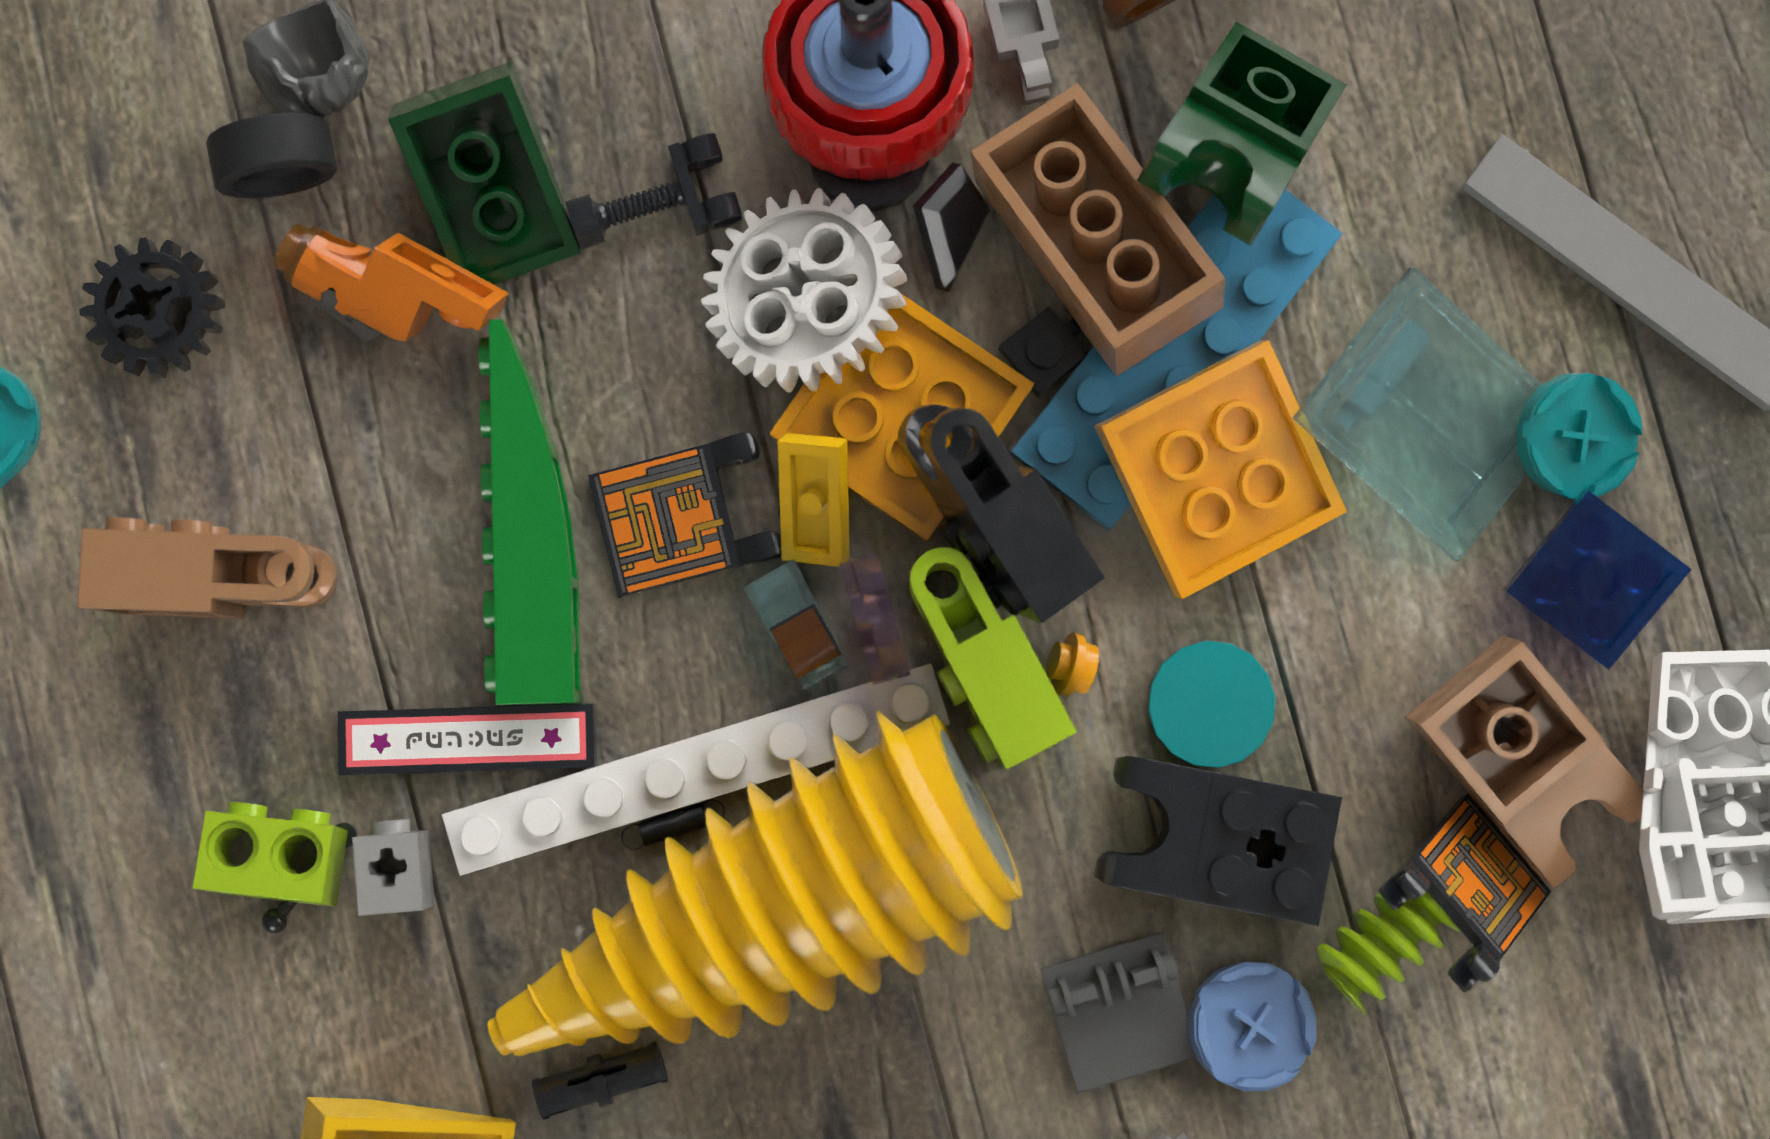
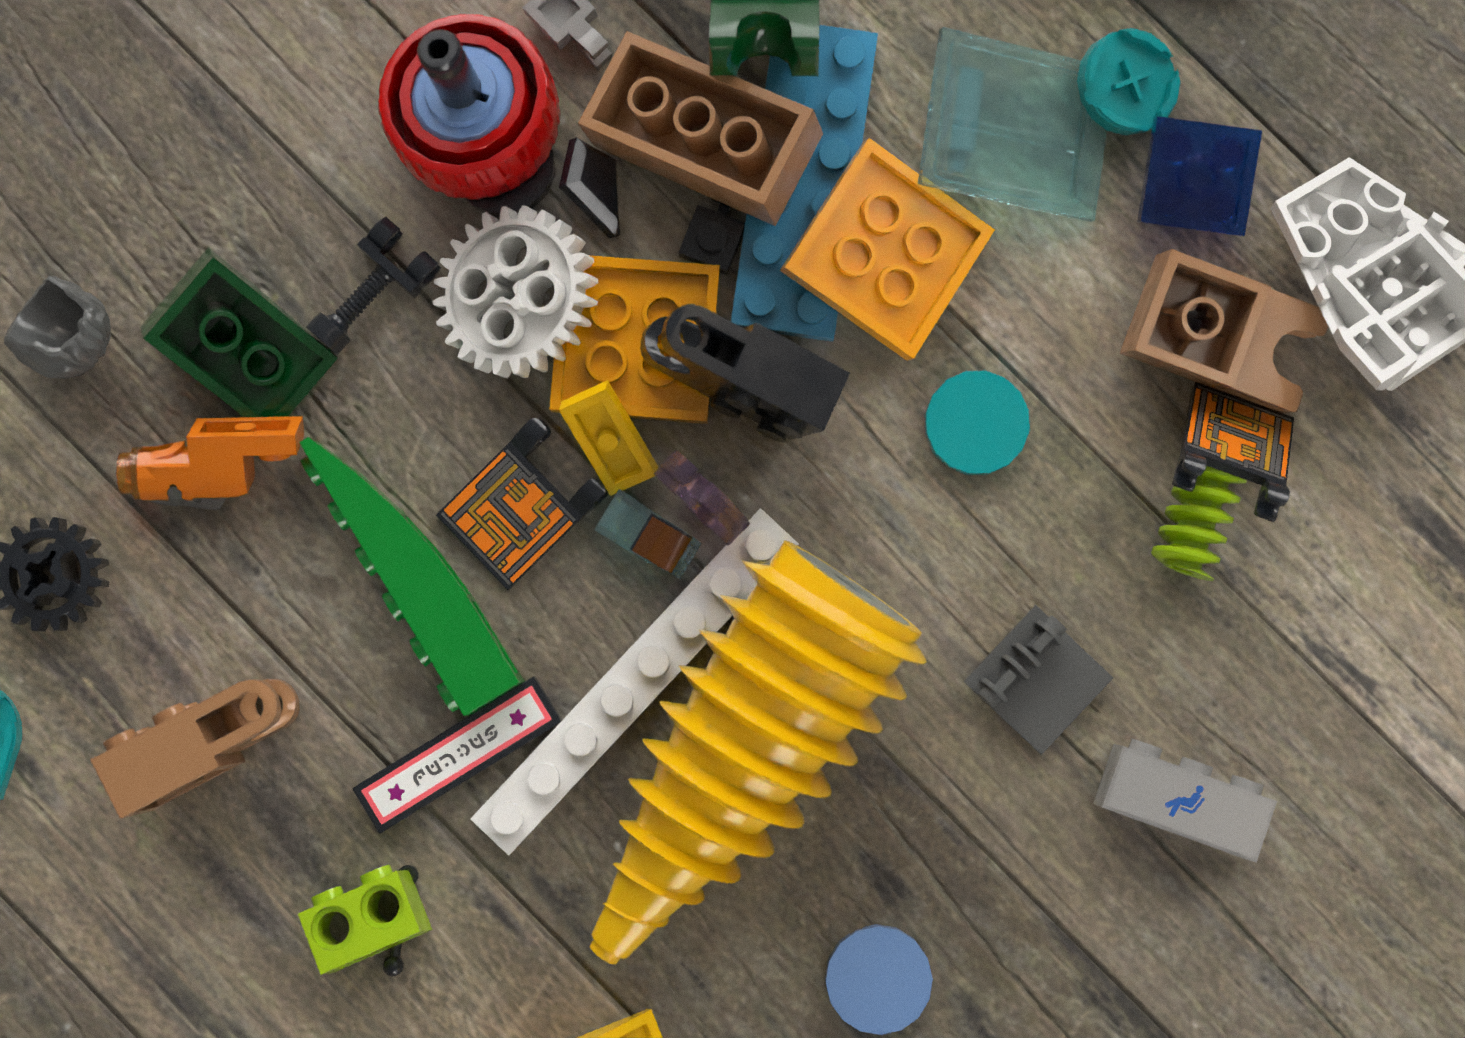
camera: 25 degrees left, 0 degrees up
(271, 155) = (72, 414): black tyre -> none
(381, 891) = (456, 900): light grey brick -> none
(599, 1080) = (694, 944): black pin -> none
(672, 824) = (641, 729): black piece -> none
(988, 665) = (800, 483): lime brick -> none
(1072, 665) = (862, 451): light orange plate -> none
(1206, 837) = (1027, 515): black brick -> none
(1251, 1026) = (1137, 635): medium blue tile -> none

